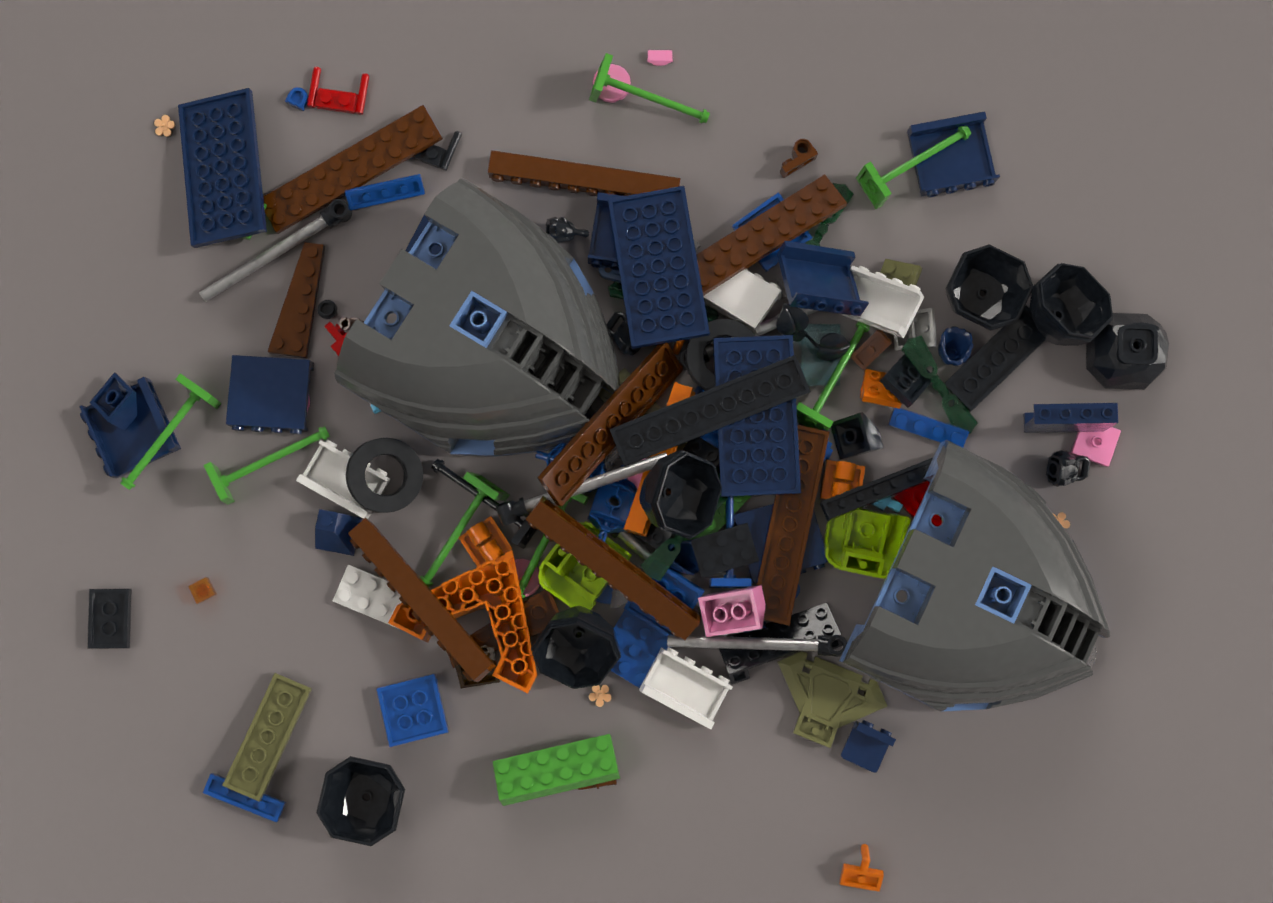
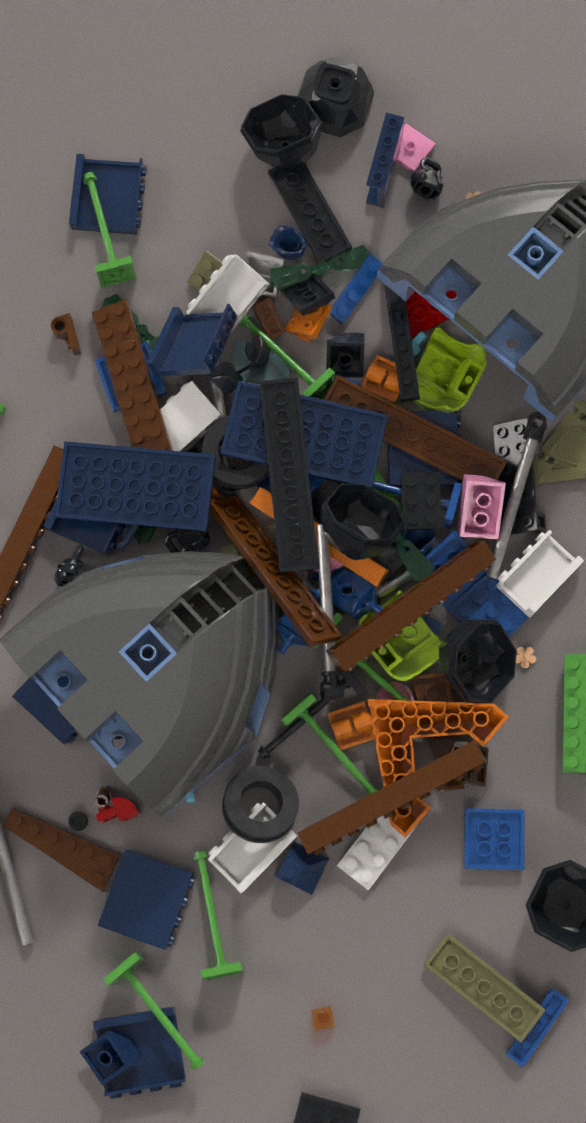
camera: 70 degrees left, 5 degrees down
(1000, 277) = (240, 183): black rock -> none

